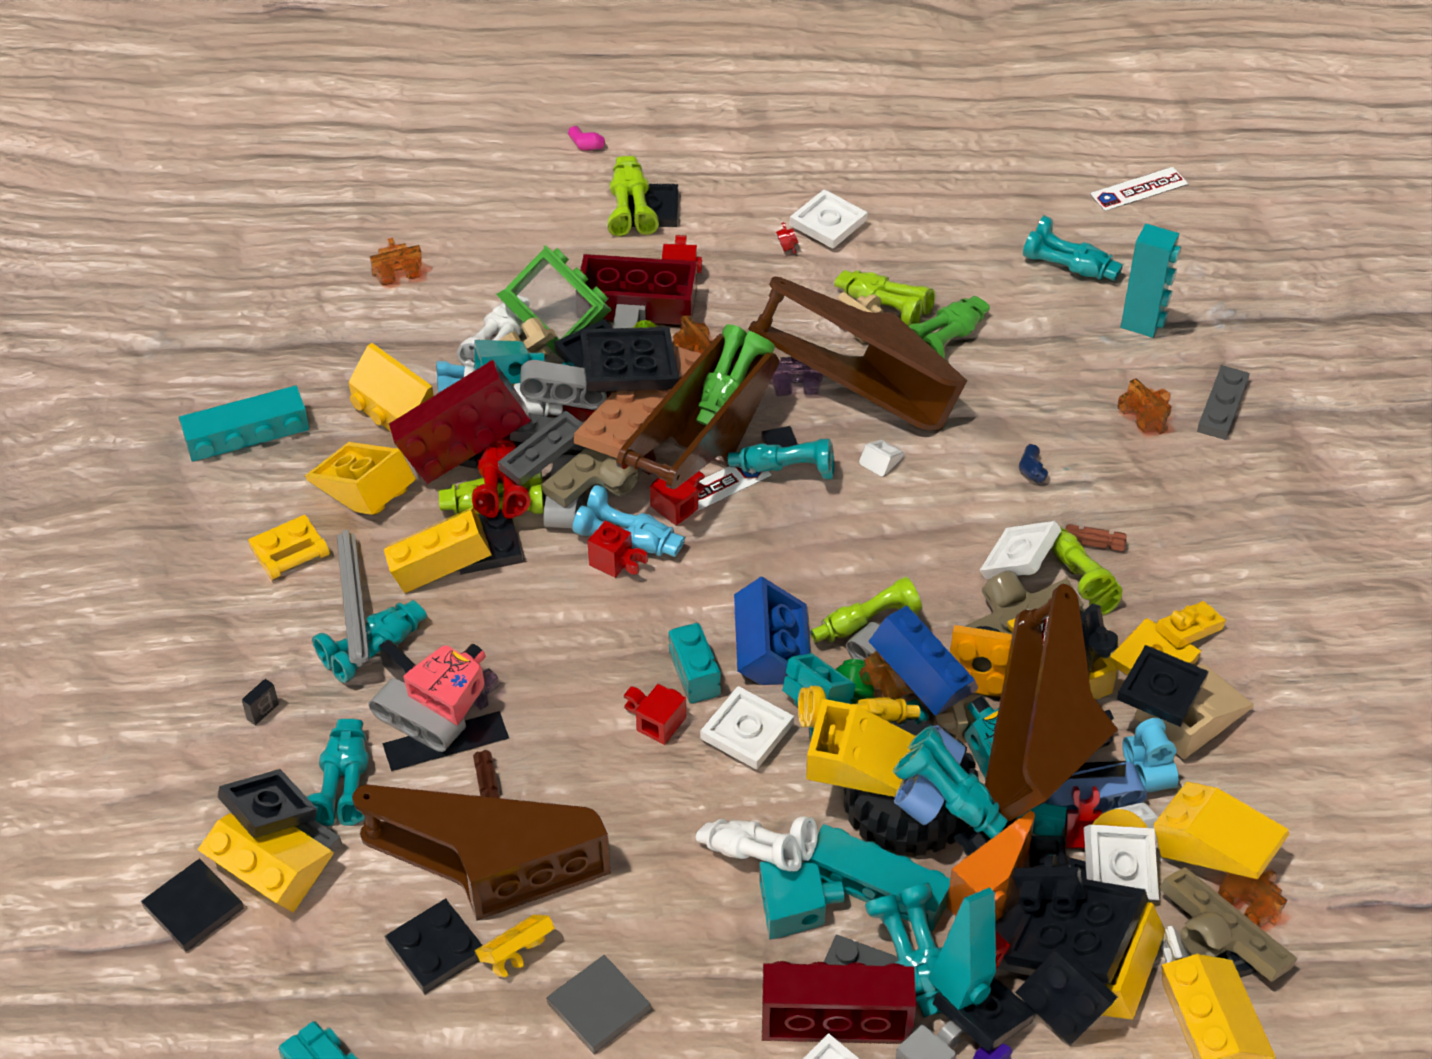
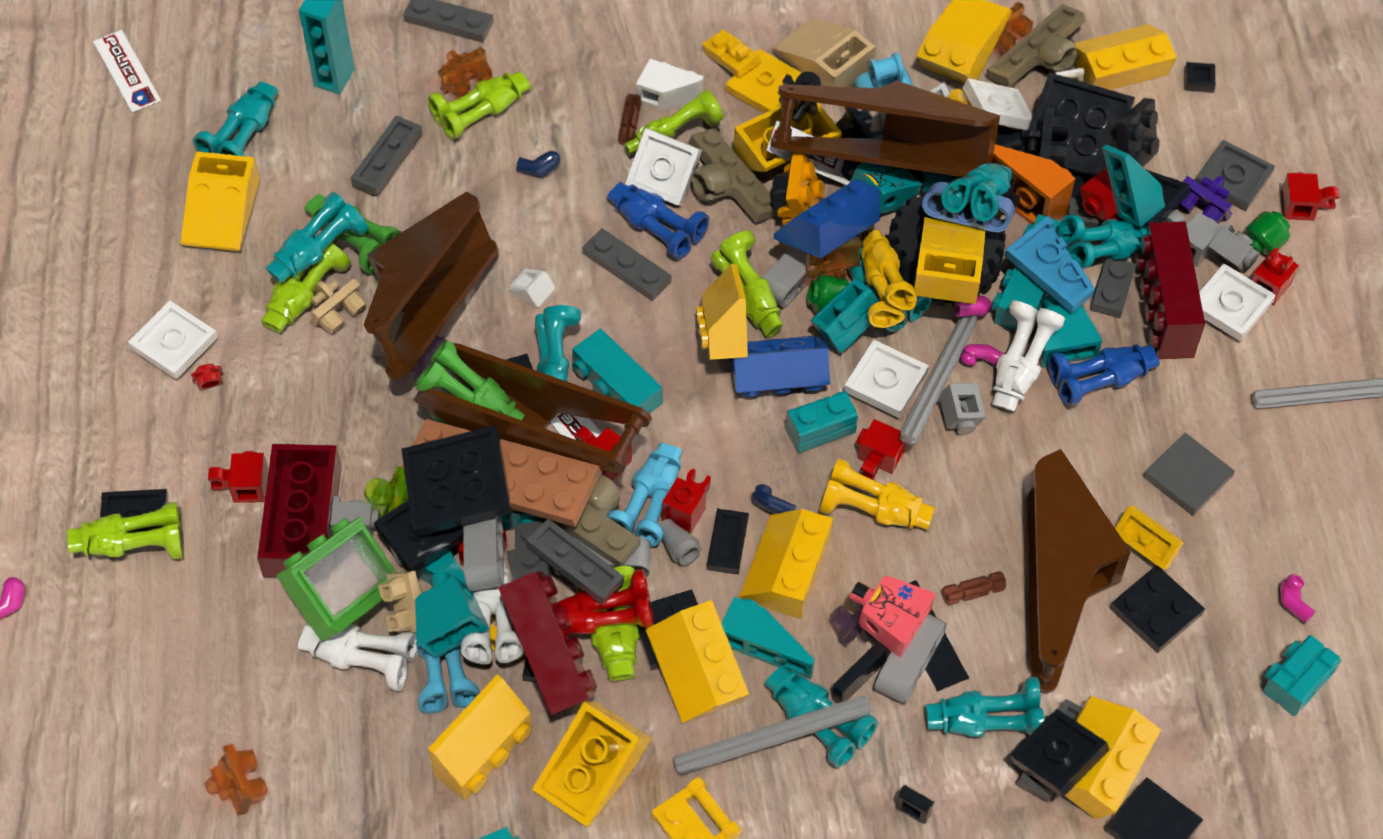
camera: 95 degrees left, 10 degrees up
(459, 601) = (760, 636): none -> teal slope
(535, 631) = (788, 561): none -> yellow slope
(570, 547) = (680, 544): none -> light grey cone
(573, 588) = (727, 541): none -> black tile
(592, 717) = (891, 507): none -> yellow piece
(609, 618) = (763, 498): none -> dark blue arm
(692, 335) = (376, 454): clear orange hips -> none
(707, 775) = (962, 407): none -> light grey brick
(738, 765) = (937, 379): none -> light grey axle
(743, 948) = (1117, 365): none -> blue piece
(765, 509) = (615, 372): none -> teal brick
(776, 813) = (981, 351): none -> dark pink arm
(809, 576) = (724, 317): none -> yellow slope
(829, 811) = (980, 309): none -> dark pink arm
(868, 872) = (1048, 263): none -> dark azure wing
(906, 528) = (627, 264): none -> dark grey plate
(911, 279) = (303, 250): none -> teal piece
(970, 539) = (644, 210): none -> blue piece
(977, 239) = (219, 200): none -> yellow slope
(1038, 352) = (386, 155): none -> dark grey plate
(1117, 427) = (491, 95): none -> lime piece
(1137, 564) = (667, 86): none -> white slope
(1162, 685) = (834, 55): black plate -> none

